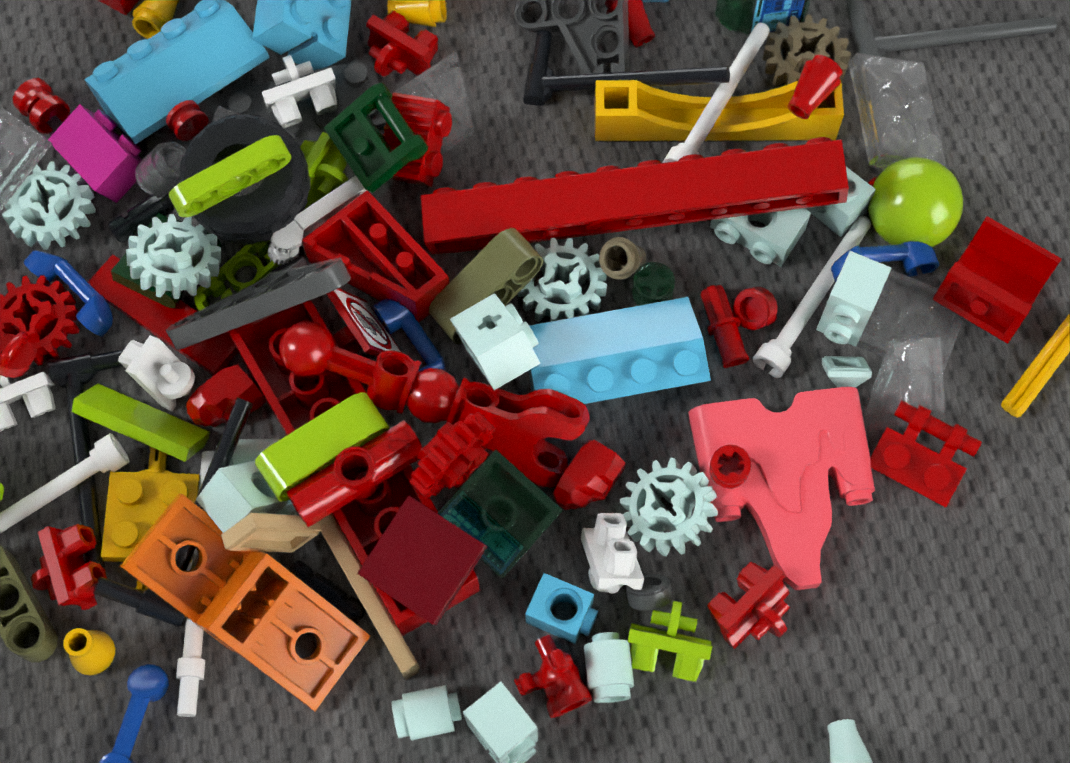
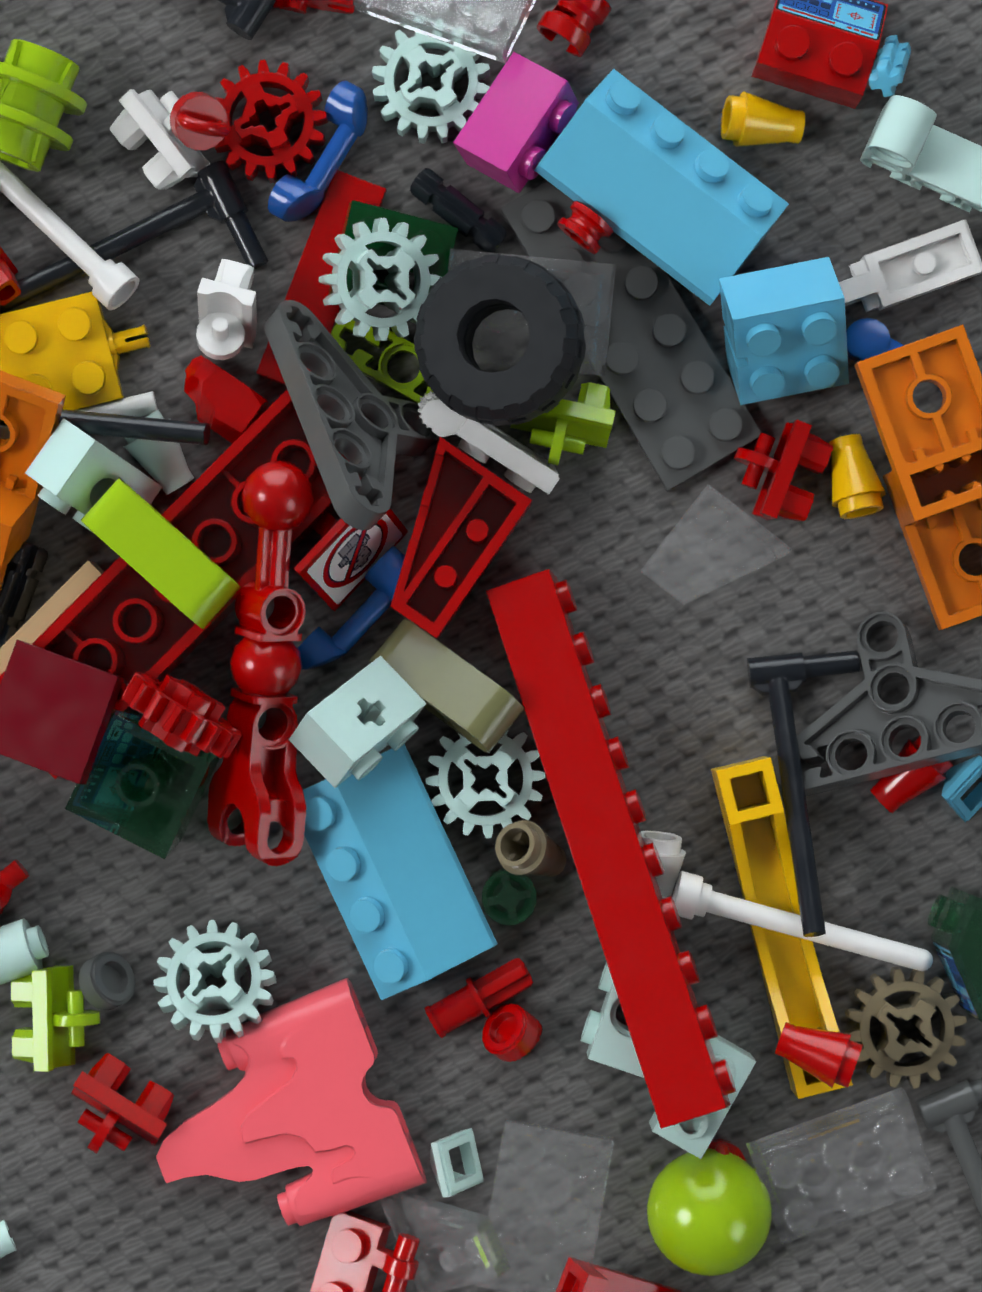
camera: 75 degrees right, 20 degrees up
(140, 422) = (169, 304): lime tile -> none
(160, 169) = (502, 221): clear brick -> none
(230, 176) = (470, 333): lime beam -> none
(269, 533) = (44, 522): tan tile -> none
(283, 98) = (648, 346): white hips -> none
(330, 489) = (107, 579): red piece -> none
(365, 146) = (597, 477): dark green plate -> none
(431, 121) = (634, 535): red brick -> none
(552, 591) = (72, 860): medium azure brick -> none
(588, 476) = (231, 875): red rock -> none
(611, 554) = (133, 927): white hips -> none
(733, 479) = (257, 1052): red bush -> none
(777, 350) = (456, 1071): white piece -> none
(853, 299) = (520, 1159): light aqua brick -> none
(911, 253) = (593, 1145): blue bar -> none

